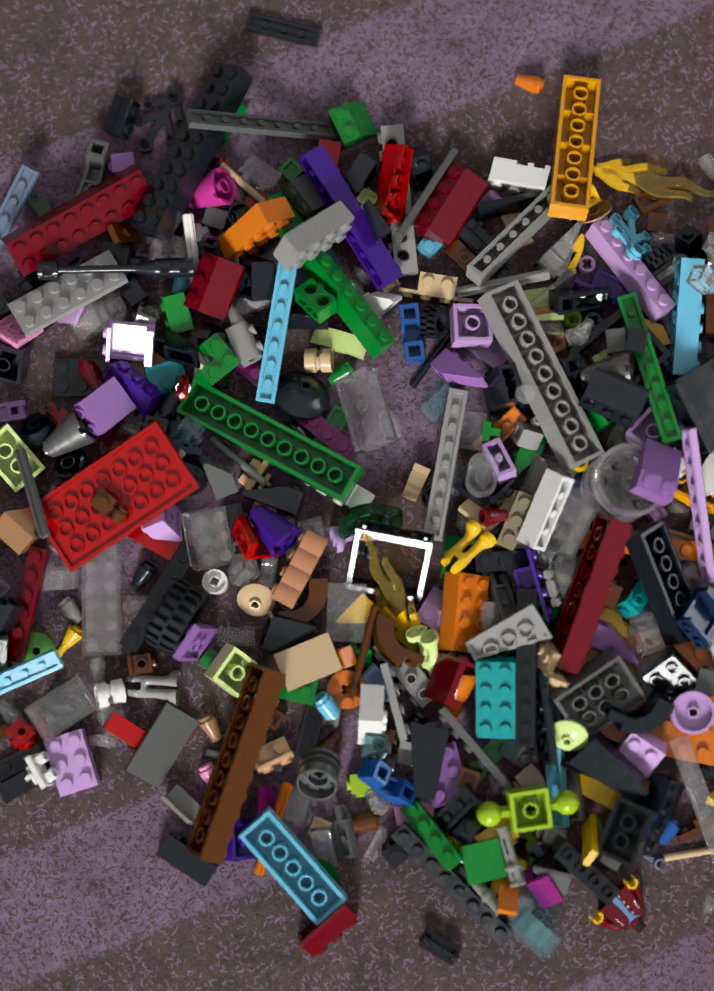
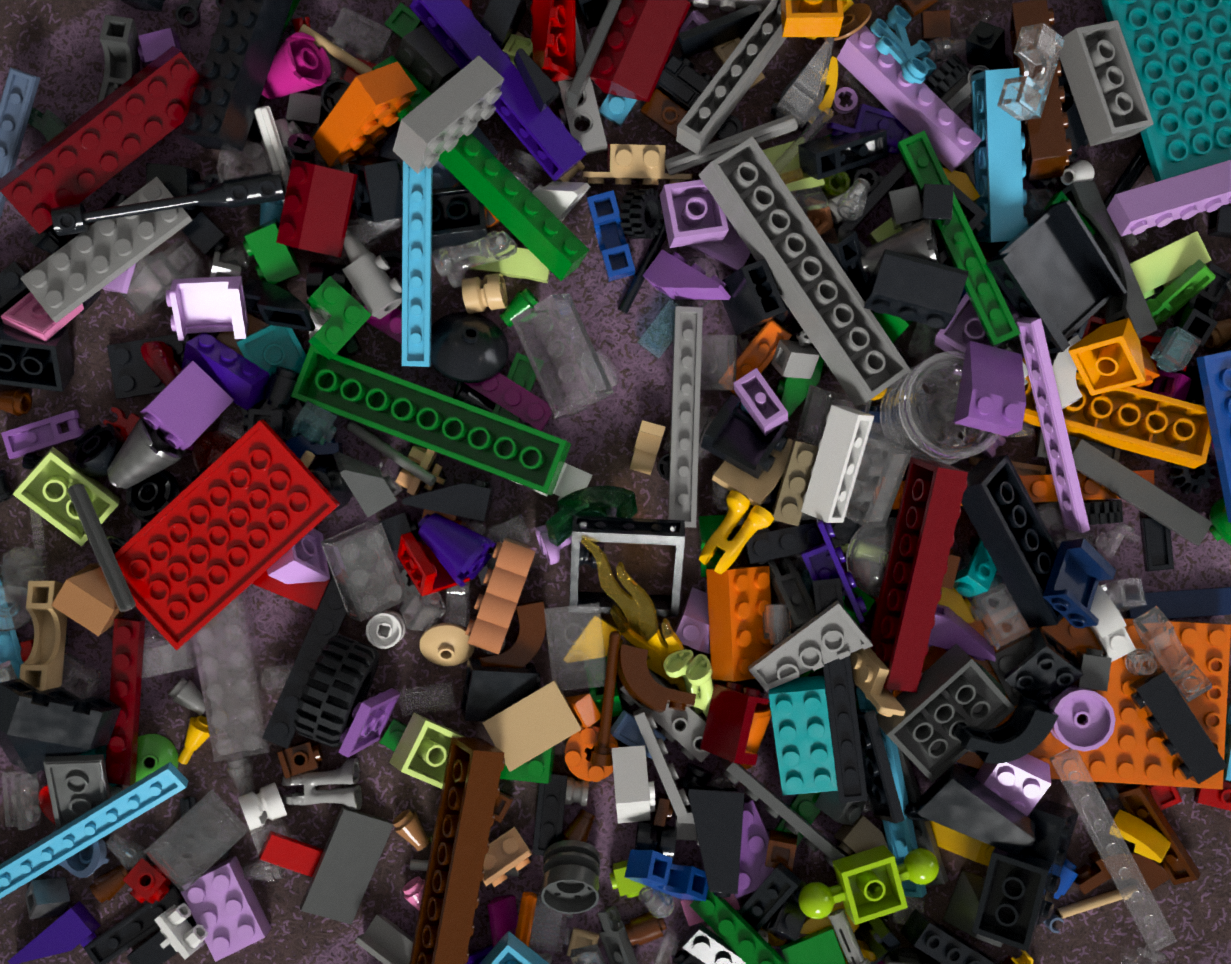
camera: 10 degrees left, 5 degrees up
(106, 502) = (209, 547): reddish brown plate -> none
(123, 234) = (176, 150): reddish brown plate -> none
(143, 574) = (284, 630): black cone -> none
(183, 387) = (295, 361): red axle -> none
(304, 334) = (458, 259): none -> clear piece
(315, 300) = (460, 204): green brick -> none
(327, 705) = (568, 782): medium azure brick -> none
(375, 740) = (652, 819): clear light blue brick -> none
(482, 474) = (740, 426): clear piece -> none
(490, 431) = (742, 361): green tile -> none
(490, 516) = (762, 483): dark red cone -> none
(525, 393) = (787, 302): clear plate -> none
(551, 587) = (860, 571): light grey axle -> none
(570, 735) = (914, 775): yellowish green dish -> none
(589, 839) = (959, 912): yellow tile -> none

